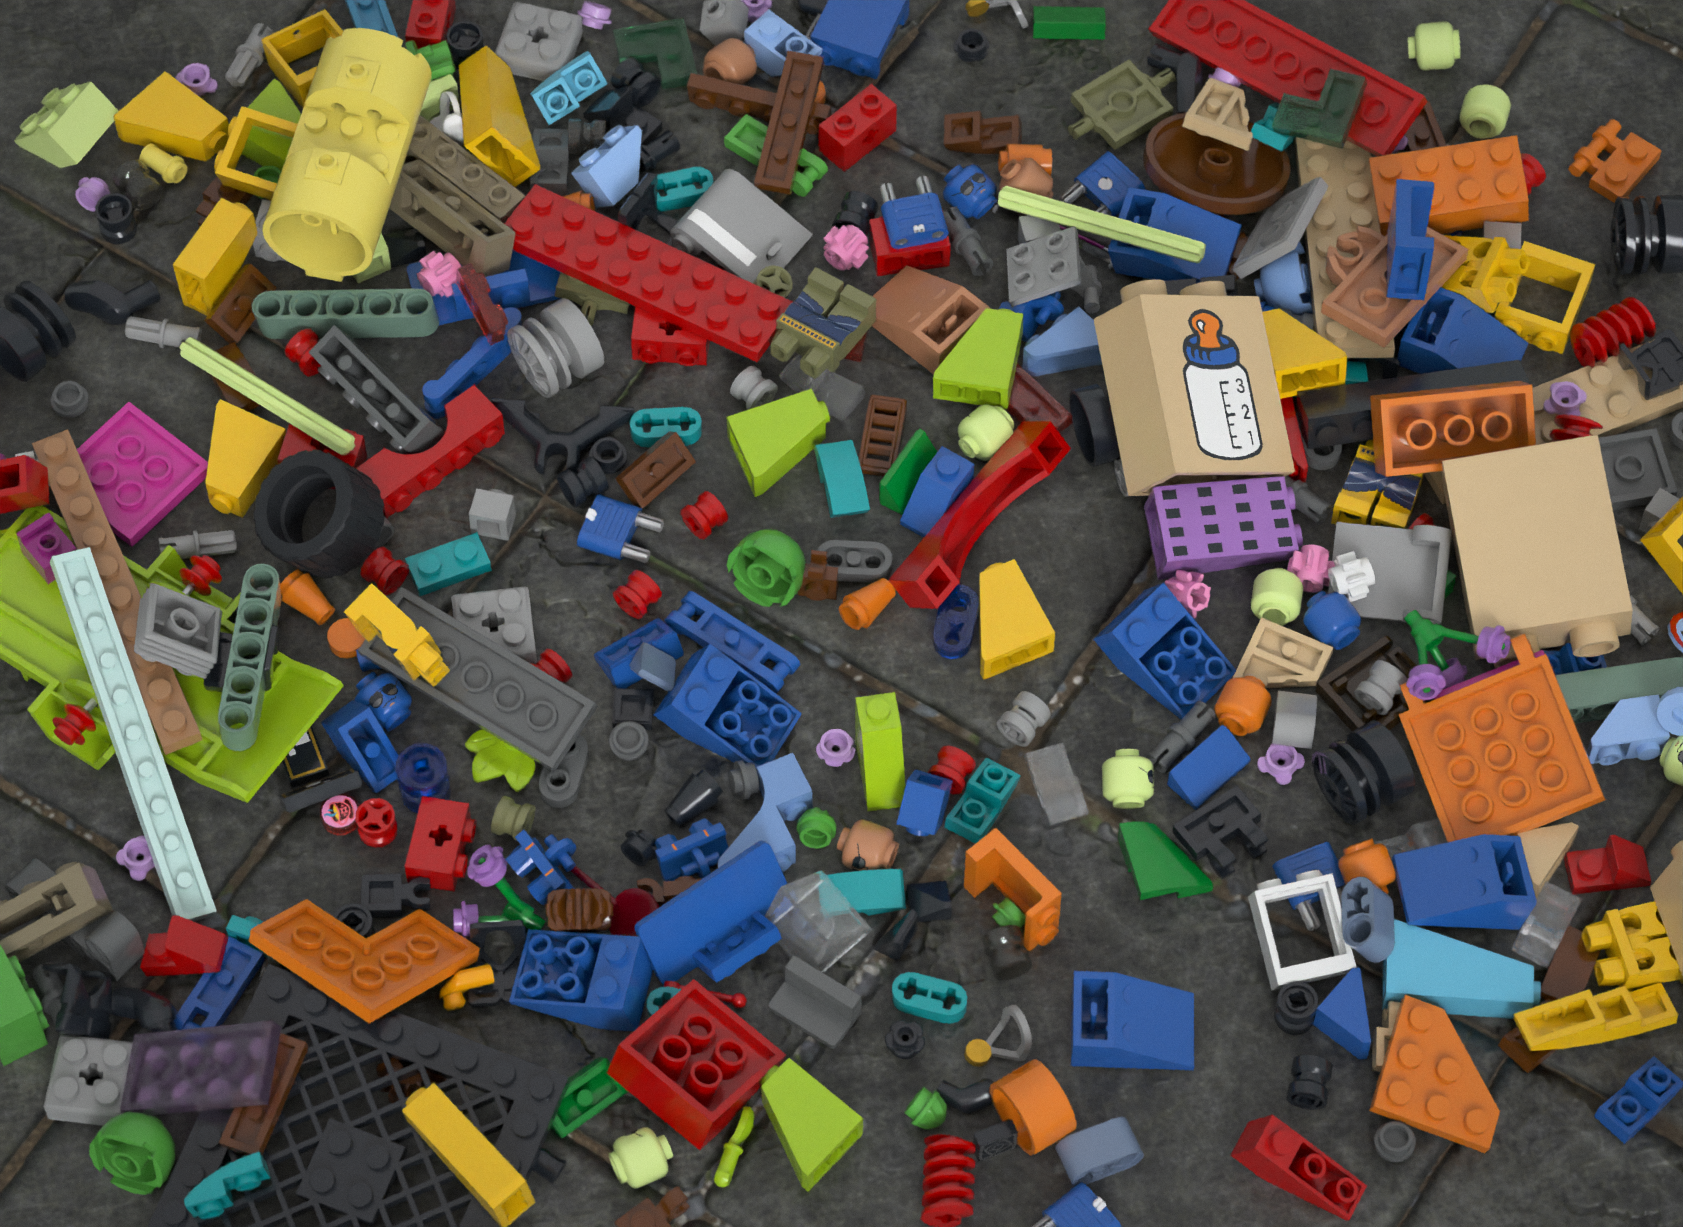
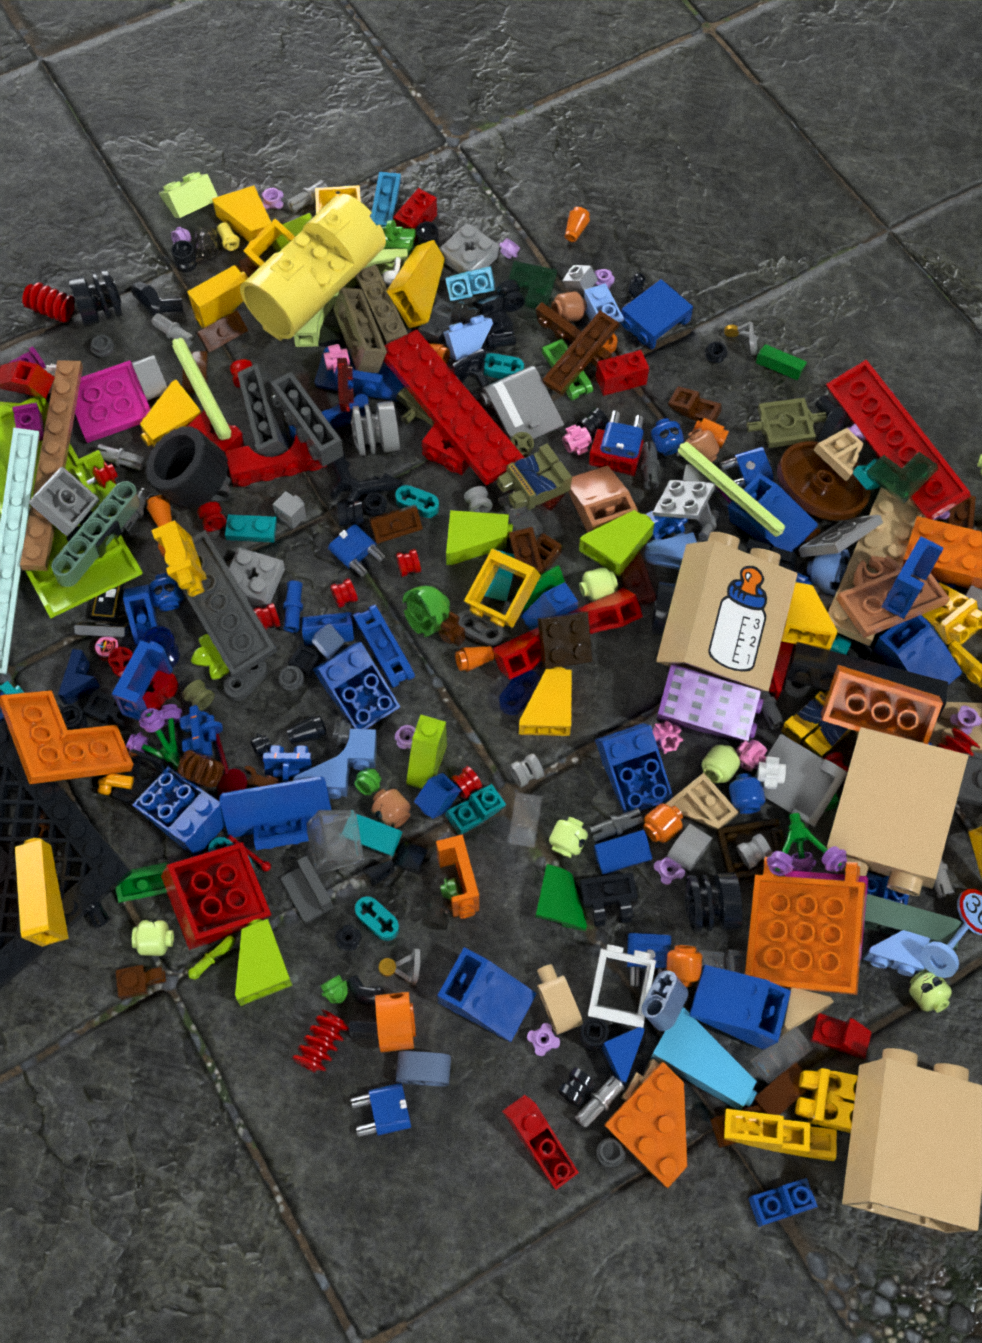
camera: 25 degrees right, 5 degrees up
(174, 412) = (150, 377): none -> light grey beam
(329, 876) = (76, 682): none -> dark blue slope
(361, 321) = (274, 359): sand green beam -> none
(440, 854) = (137, 676): none -> blue panel
(456, 374) = (307, 419): none -> dark grey brick
(574, 643) = (293, 606): none -> blue pin
(861, 453) = (484, 578): none -> yellow window
(865, 431) = (526, 548): none -> reddish brown plate
(983, 524) = (564, 640): none -> dark brown plate
(1227, 989) = (558, 1000): none -> tan piece
(1234, 1057) = (543, 1047): none -> lavender plate
(1348, 1086) = (599, 1101): none -> light grey axle

